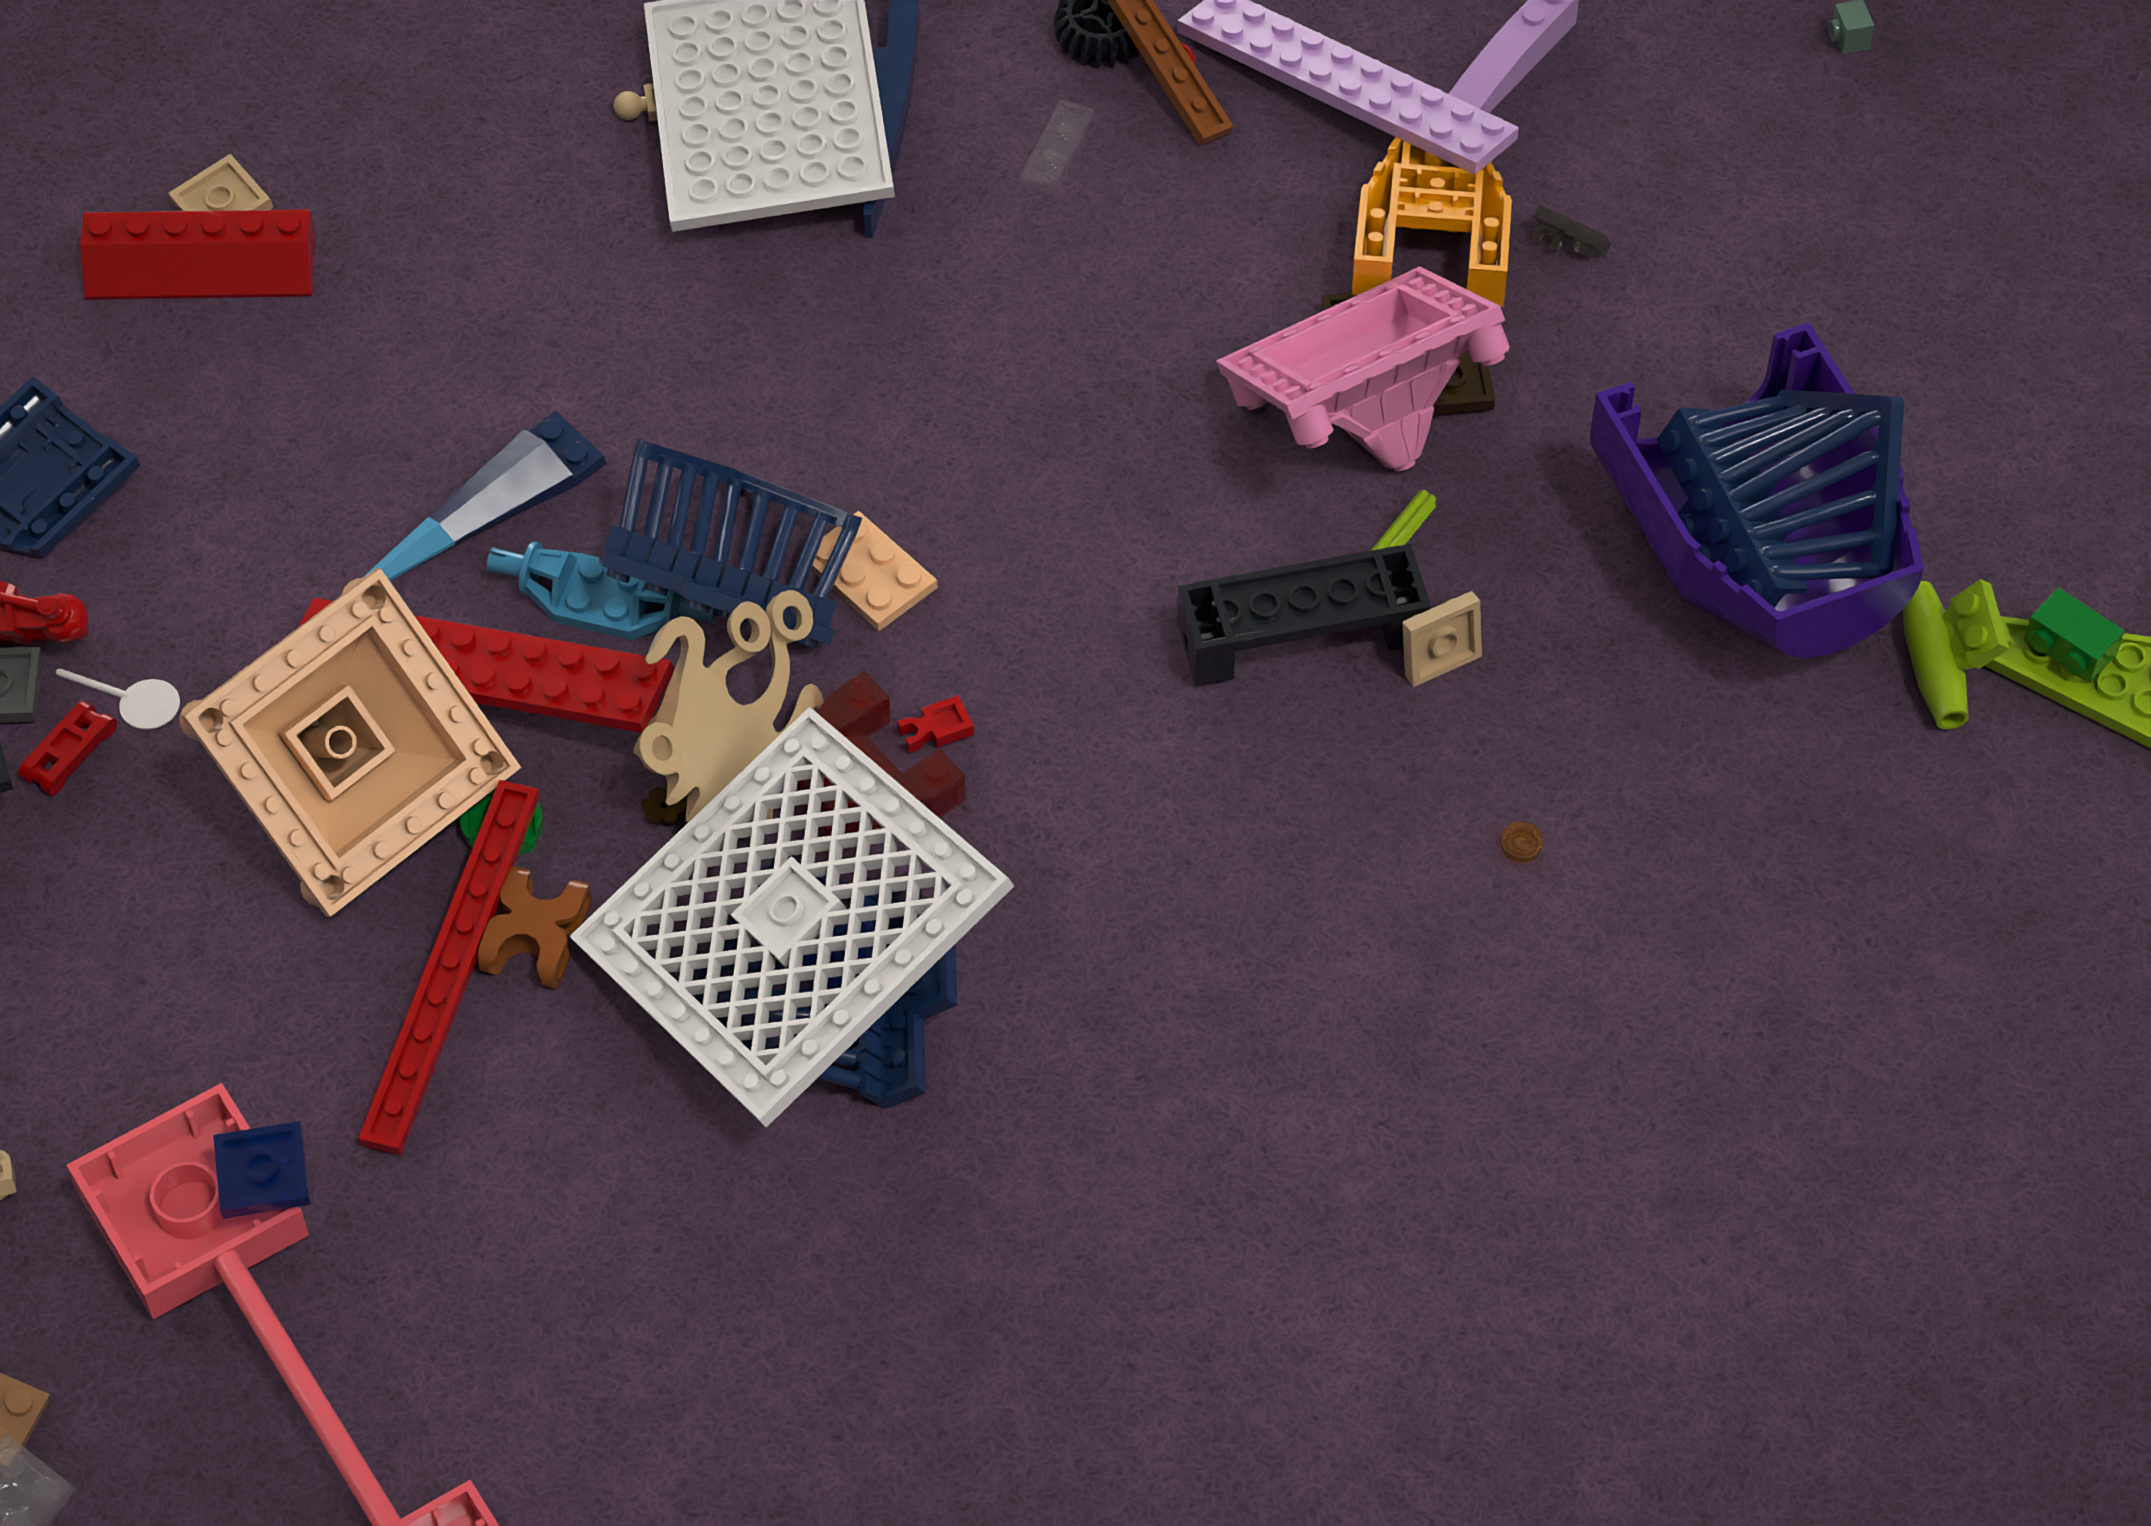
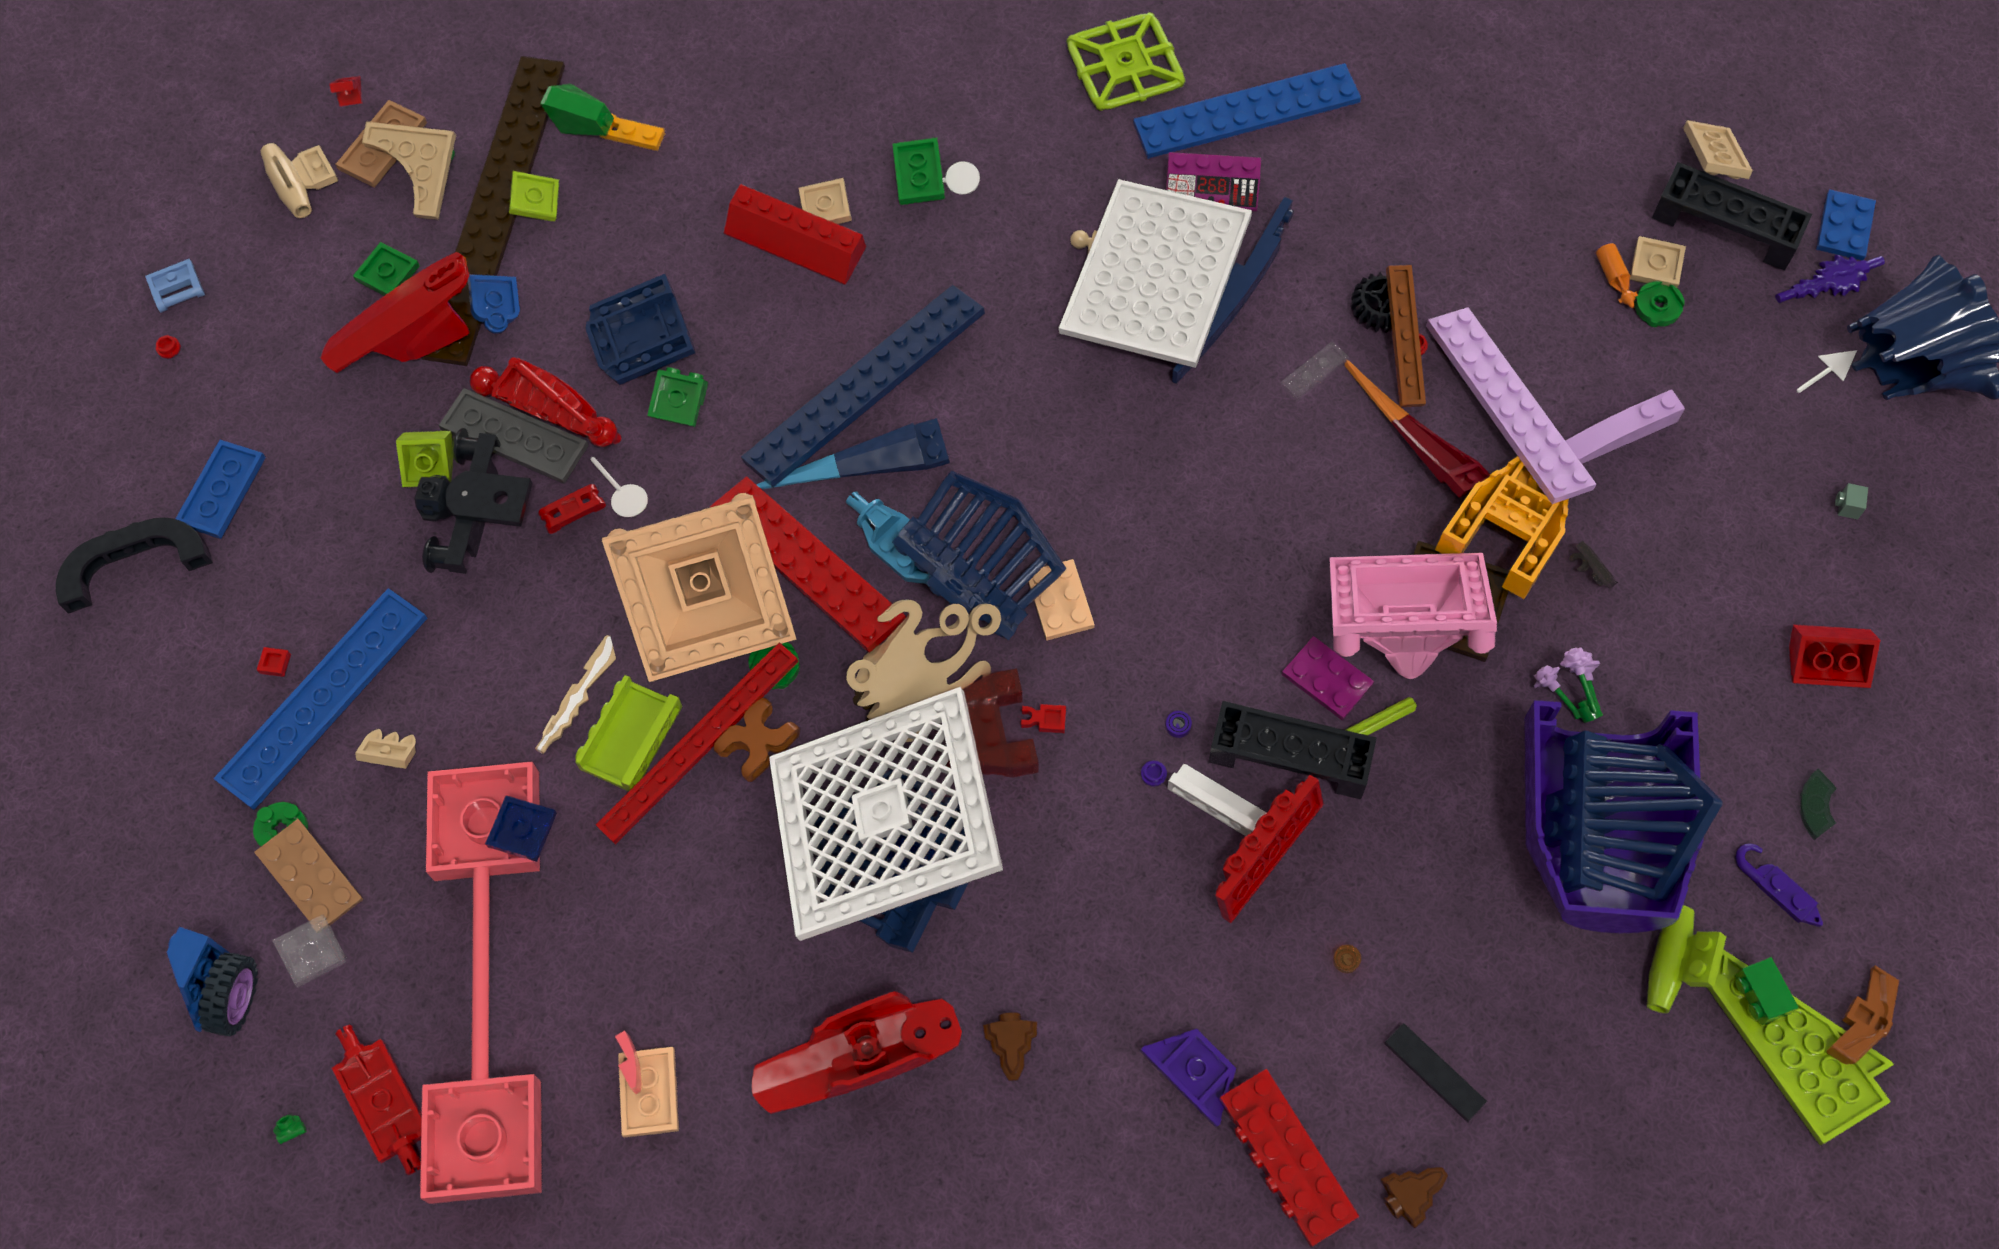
camera: 30 degrees right, 10 degrees up
(146, 534) = (677, 396): none -> green plate
(223, 989) = (577, 694): none -> tan sword
(335, 1004) = (627, 734): none -> lime panel
(337, 105) = (918, 171): none -> green plate
(401, 93) = (962, 178): none -> white piece
(418, 412) = (862, 385): none -> dark blue plate
(604, 1412) = (631, 1067): none -> coral slope
(645, 1445) = (656, 1105): none -> light nougat plate
(916, 1251) = (856, 1051): none -> red piece
(1127, 659) = (1178, 724): none -> dark purple tile
(1127, 1143) = (1011, 1042): none -> reddish brown rock
(1128, 729) = (1153, 773): none -> dark purple plate
(1239, 729) = (1215, 799): none -> white panel
(1296, 514) = (1327, 678): none -> magenta plate
(1299, 184) = (1442, 458): none -> dark red plate
(1338, 743) = (1267, 845): none -> red plate
(1400, 1064) = (1194, 1070): none -> dark purple wing
(1442, 638) = (1366, 805): tan plate -> none
(1584, 1111) = (1288, 1158): none -> red plate
(1625, 358) = (1582, 665): none -> plant
(1715, 926) = (1435, 1072): none -> black tile
(1769, 1081) = (1413, 1193): none -> reddish brown rock
(1931, 217) = (1833, 656): none -> red slope
(2008, 401) = (1815, 804): none -> clear green tile
(2022, 517) = (1780, 888): none -> dark purple plate

